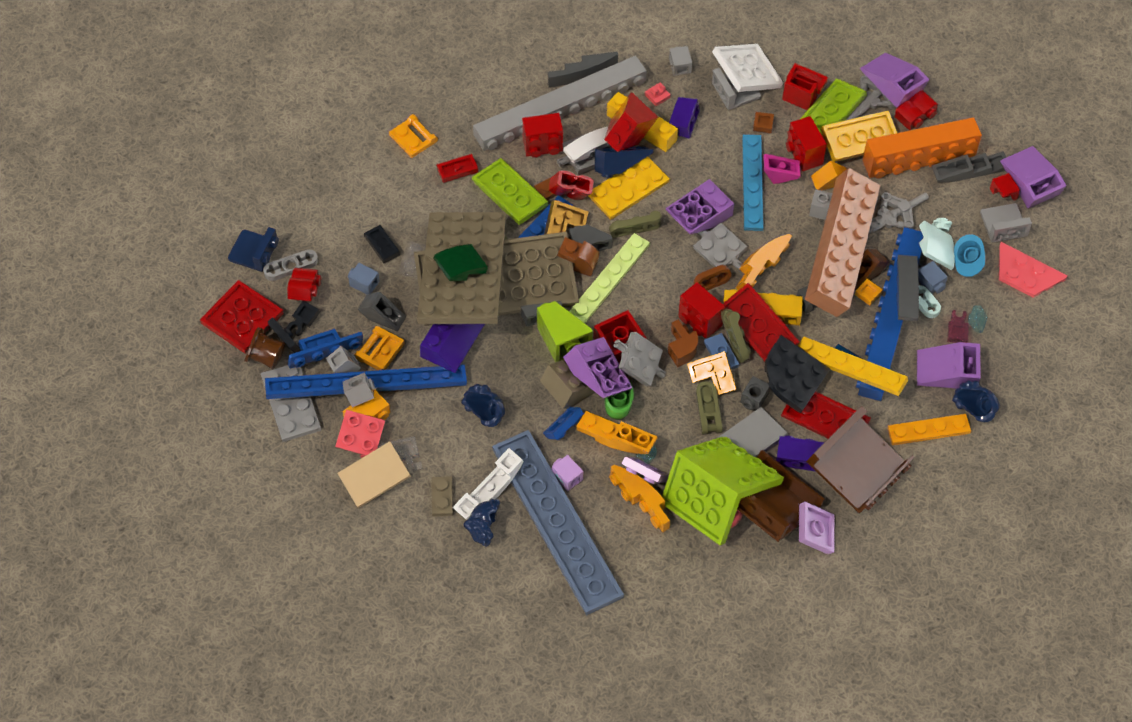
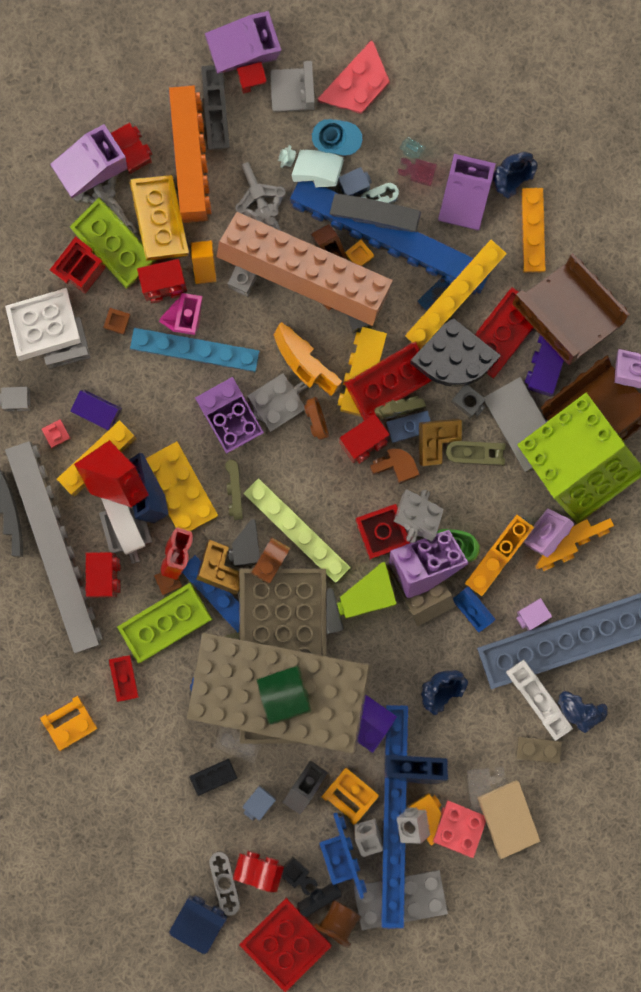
camera: 80 degrees left, 25 degrees up
(409, 386) = (416, 769): none -> dark blue slope

